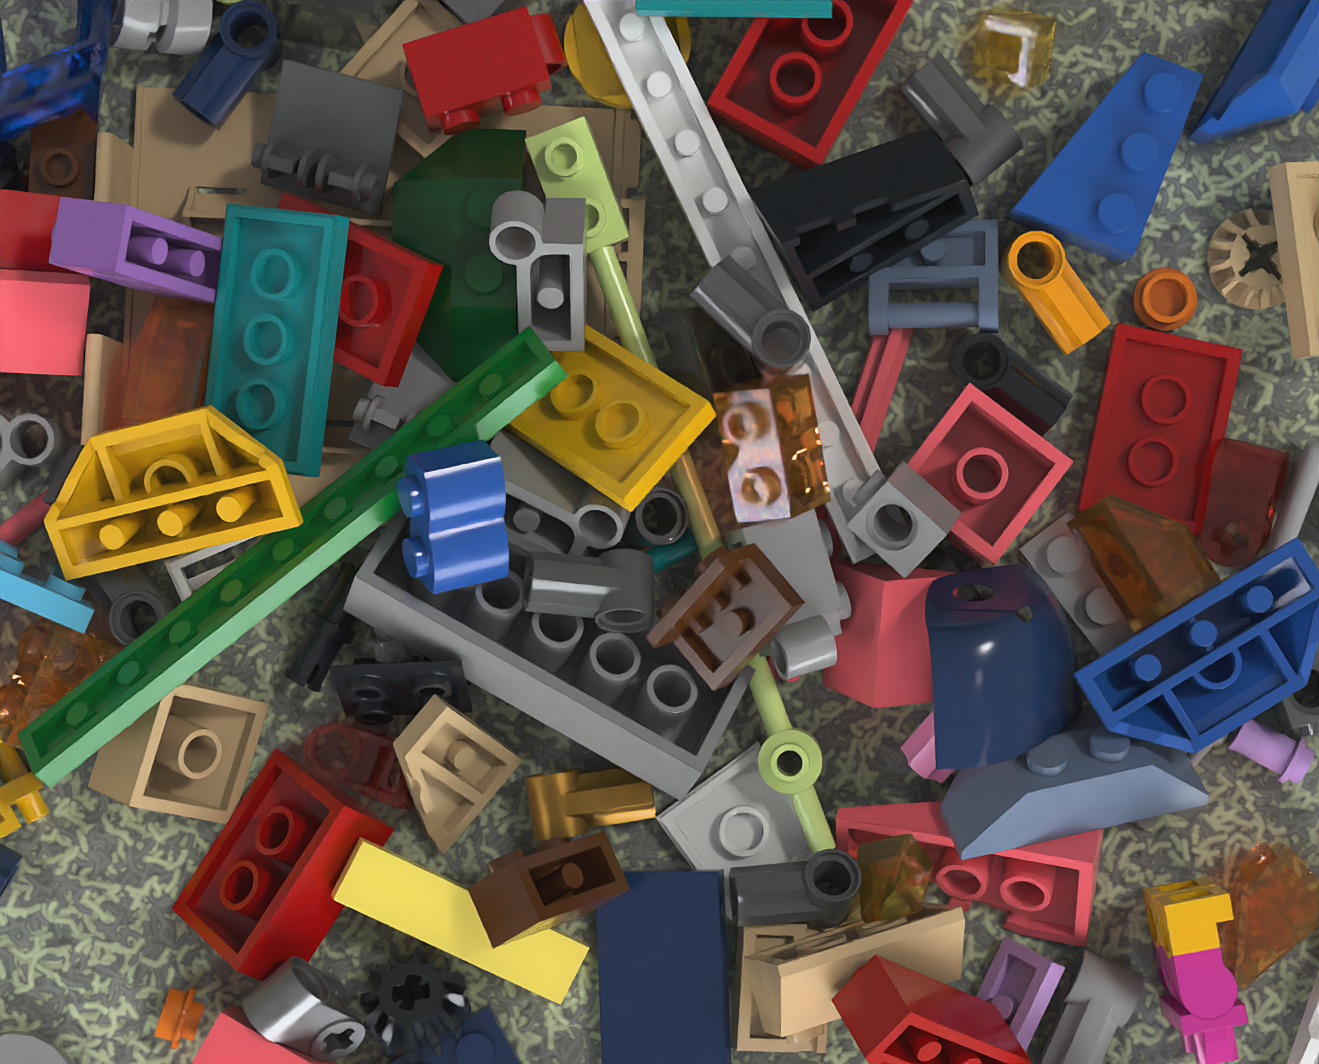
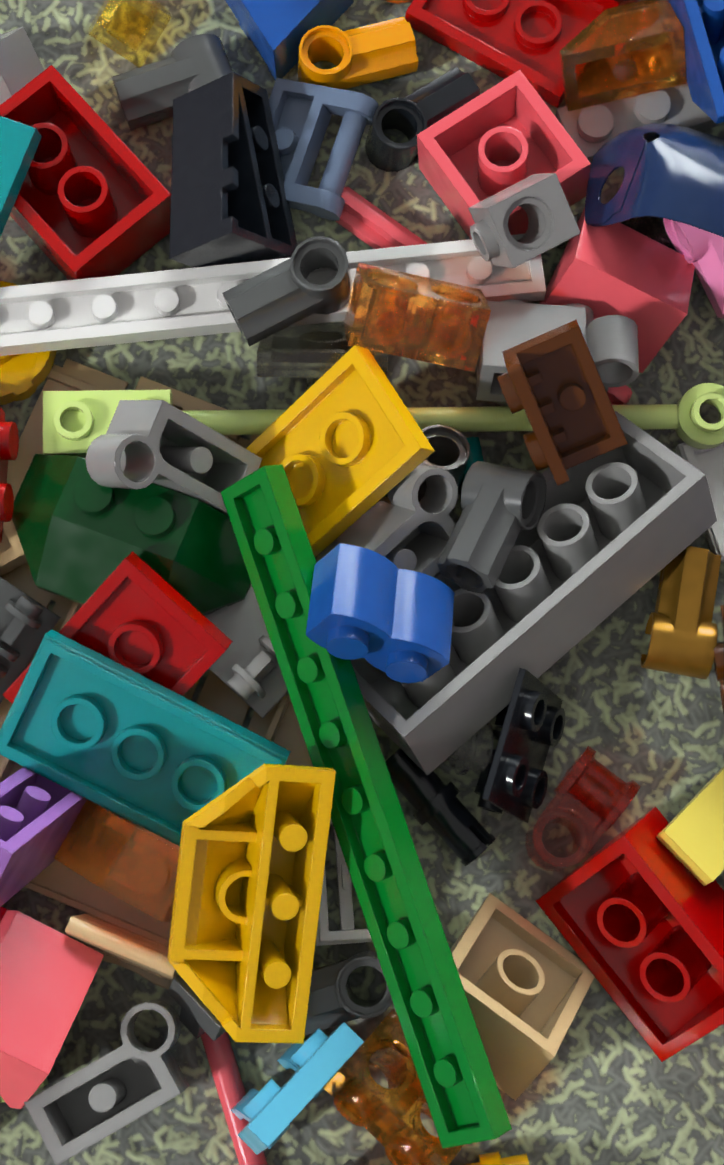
camera: 80 degrees left, 10 degrees down
(451, 769) = (615, 732): tan wing -> none

